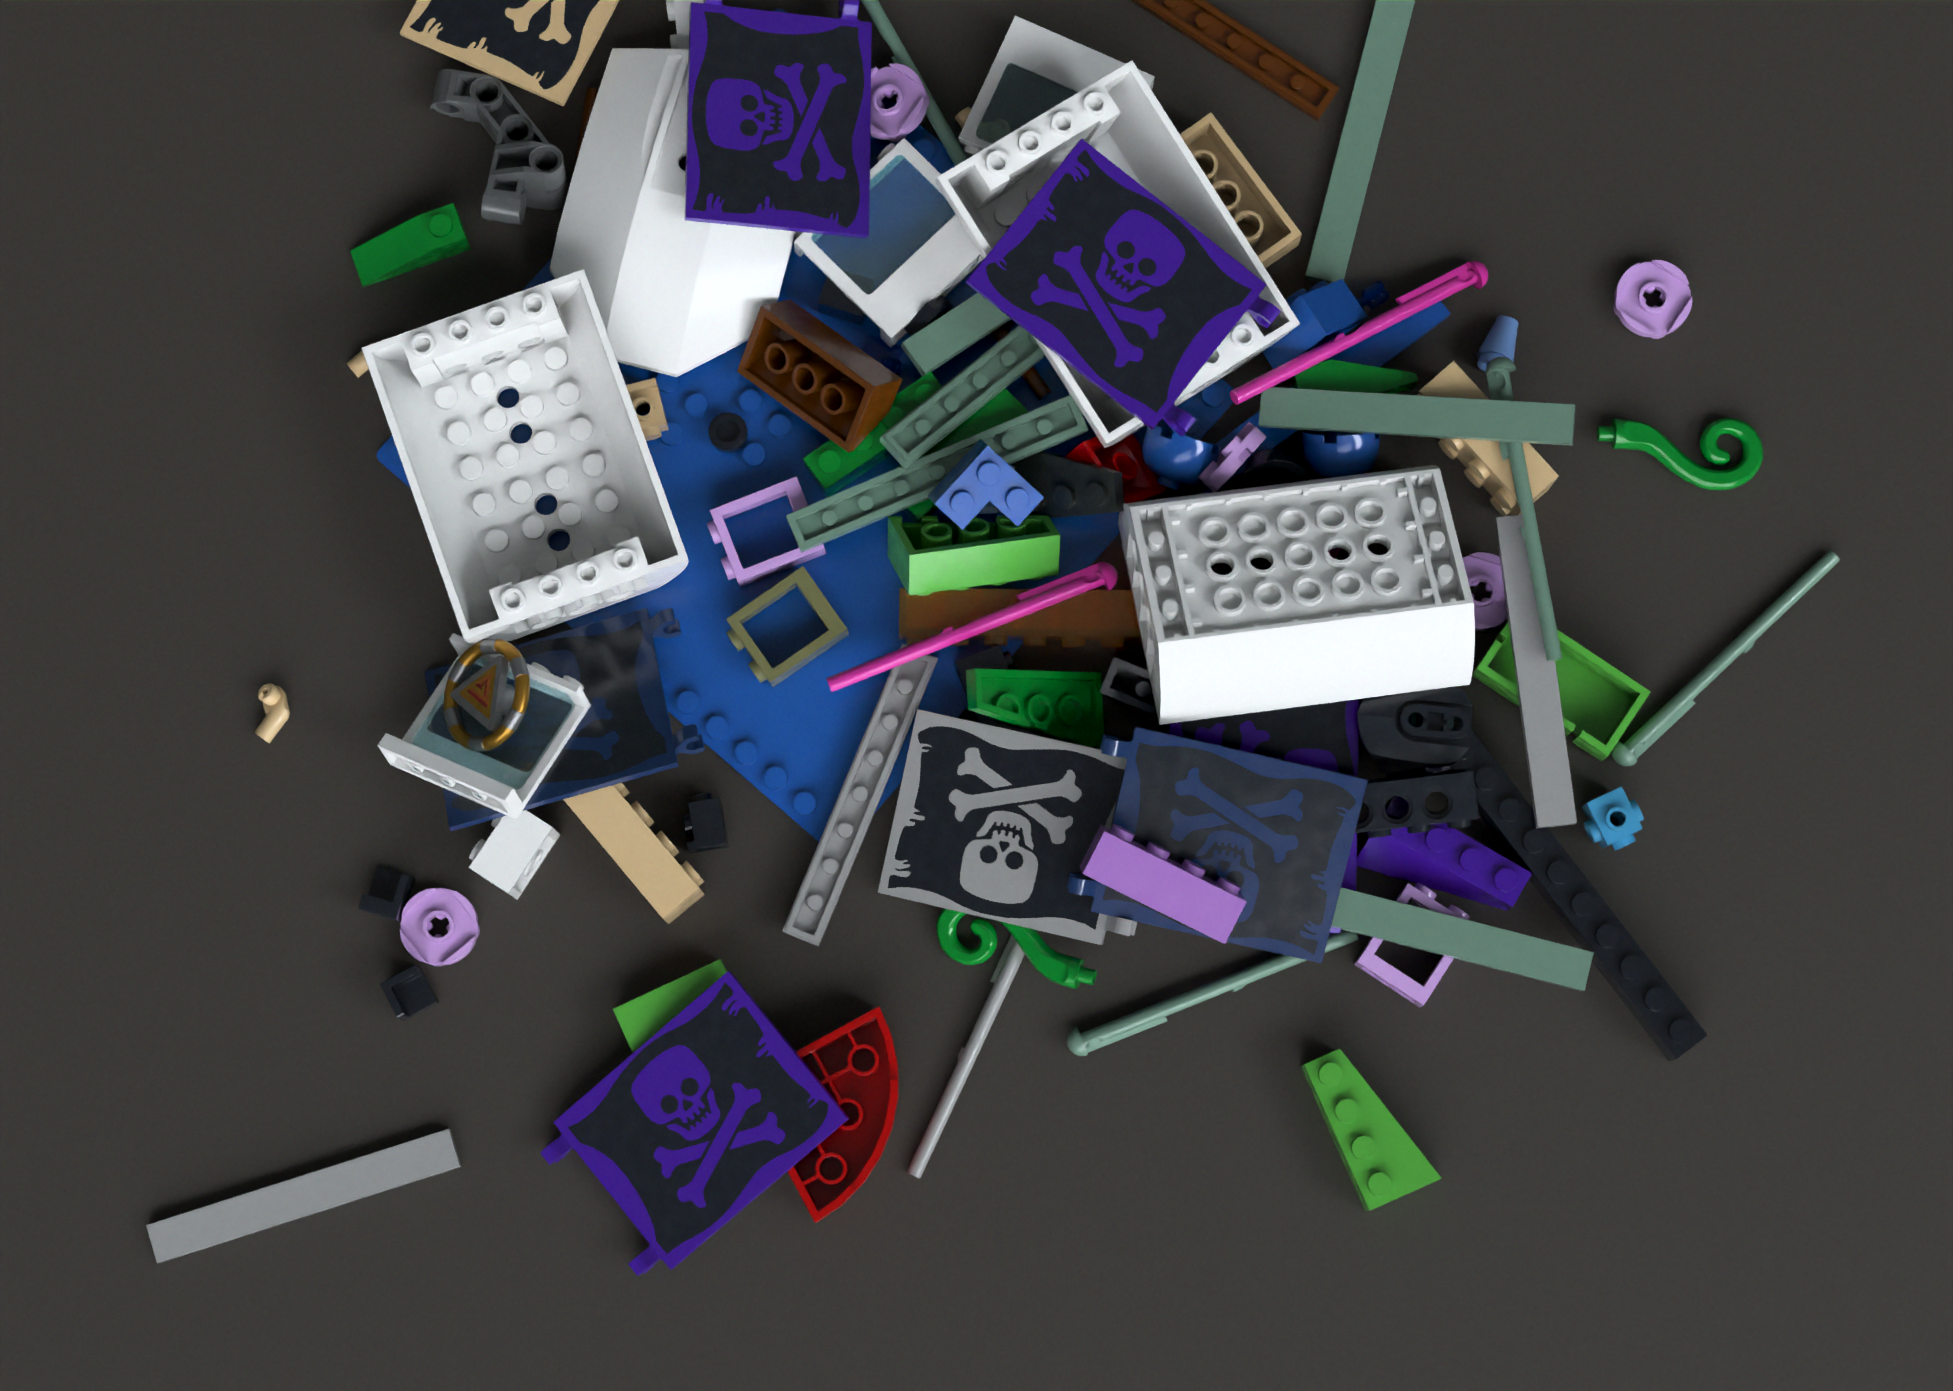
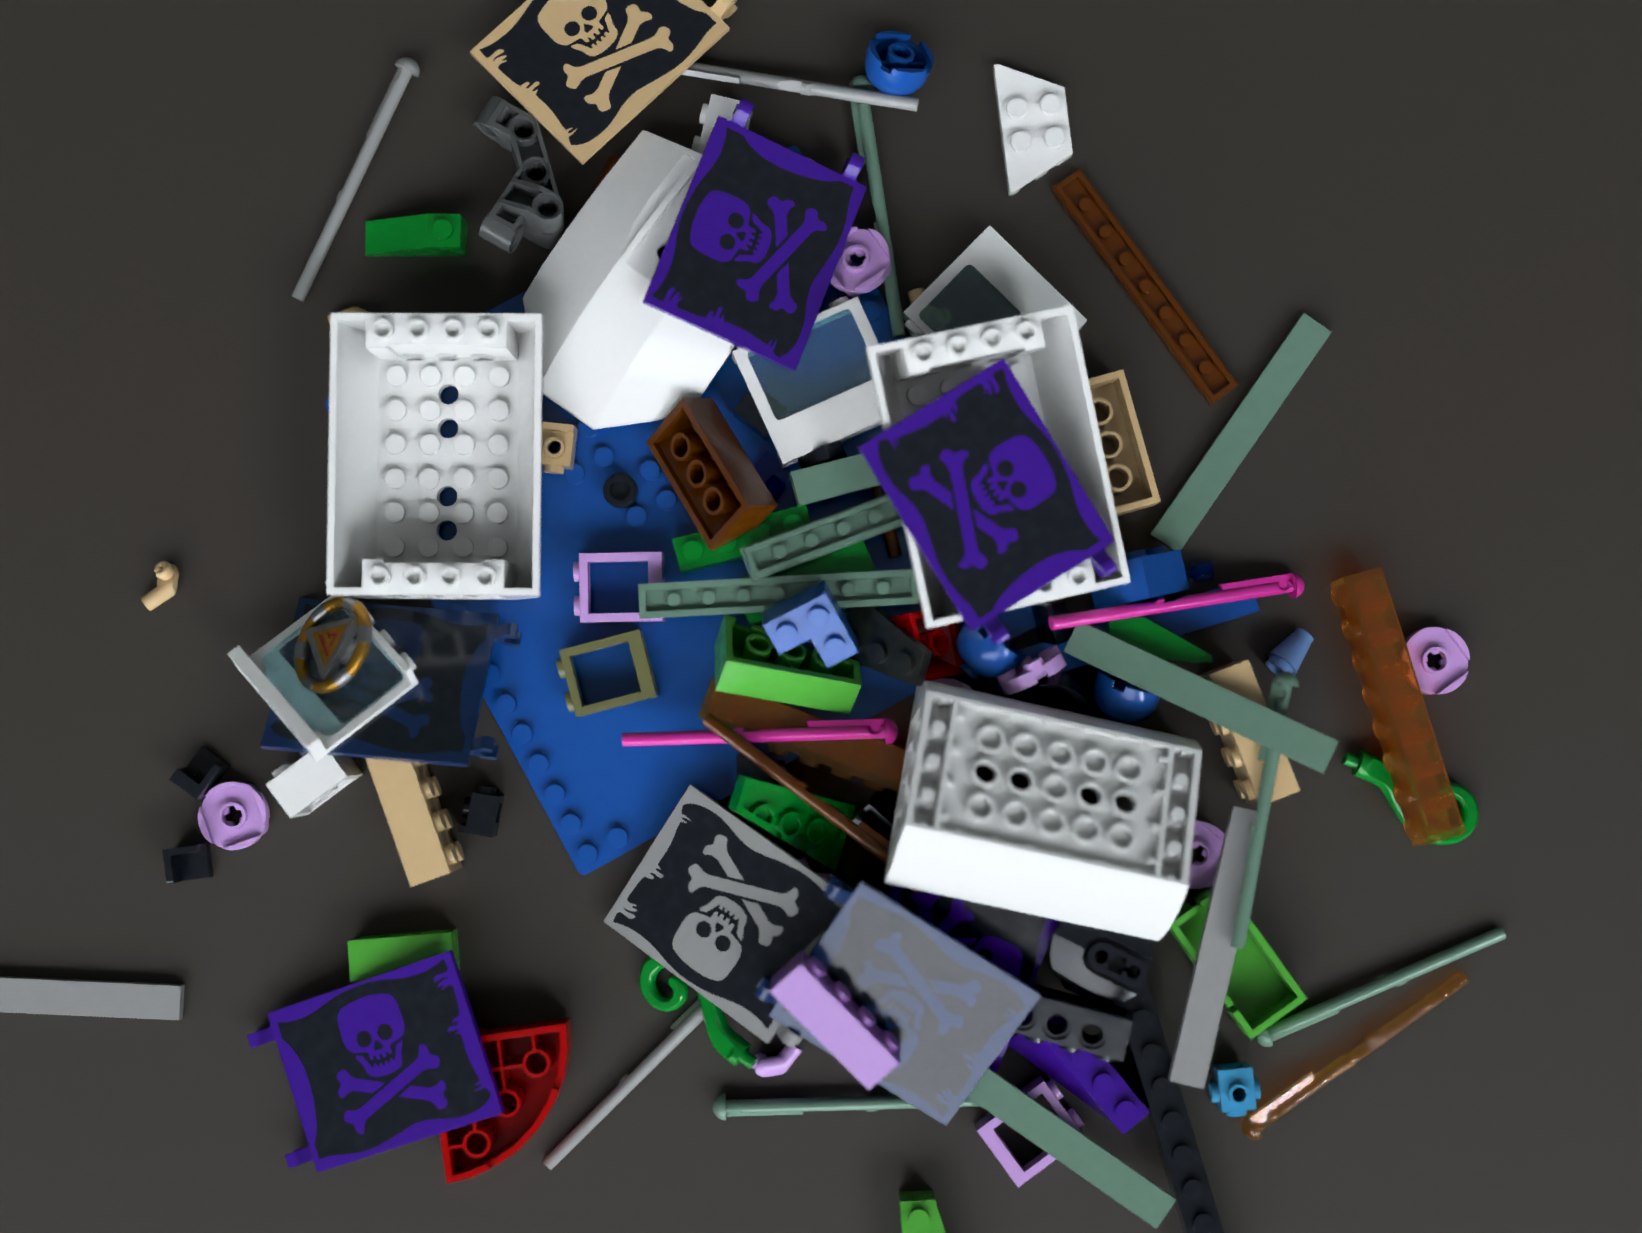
camera: 20 degrees right, 5 degrees up
(335, 76) = (406, 68): none -> light grey bar
(858, 799) = (614, 840): light grey tile -> none
(1119, 688) = (862, 834): none -> reddish brown bar
(1120, 976) = (777, 1064): none -> lavender arm
(1234, 414) = (1042, 613): none -> black panel
(1630, 358) = (1397, 707): none -> clear orange brick
(1691, 788) = (1309, 1084): none -> clear orange bar

